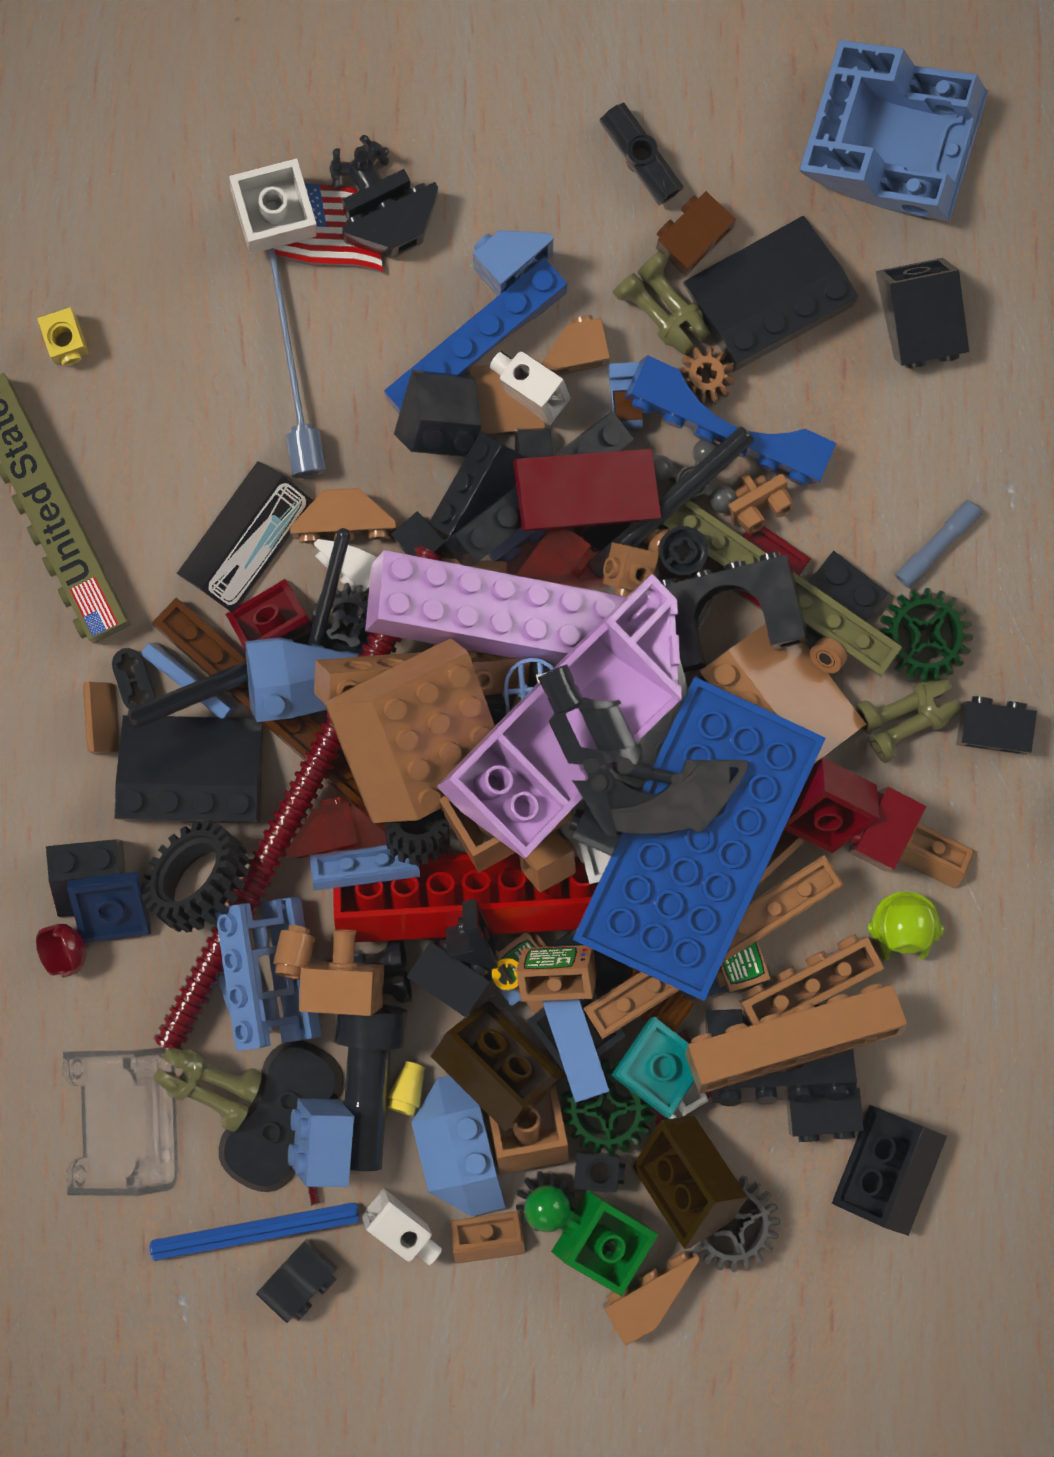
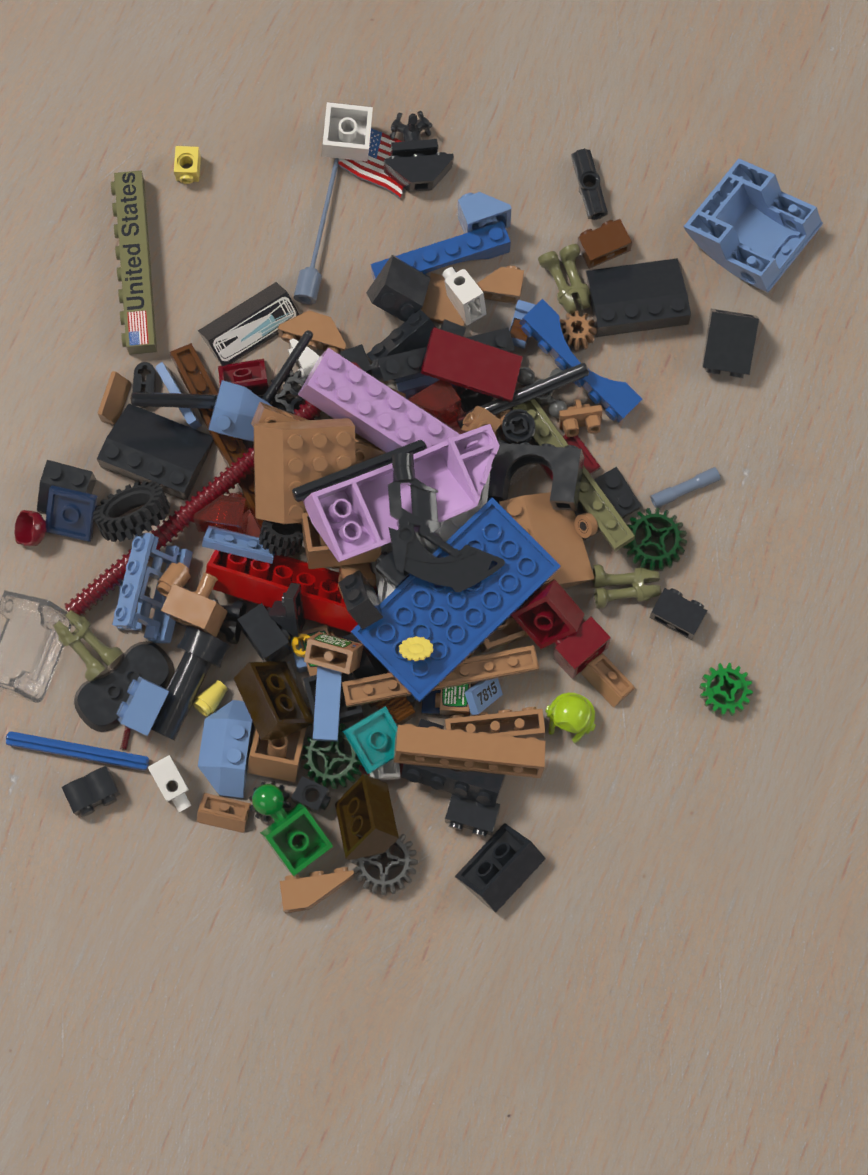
camera: 25 degrees right, 10 degrees down
(496, 711) = (302, 492): none -> black axle
(570, 892) = (360, 599): none -> black brick
(674, 933) = (416, 648): none -> light yellow piece
(777, 950) = (483, 695): none -> medium blue tile

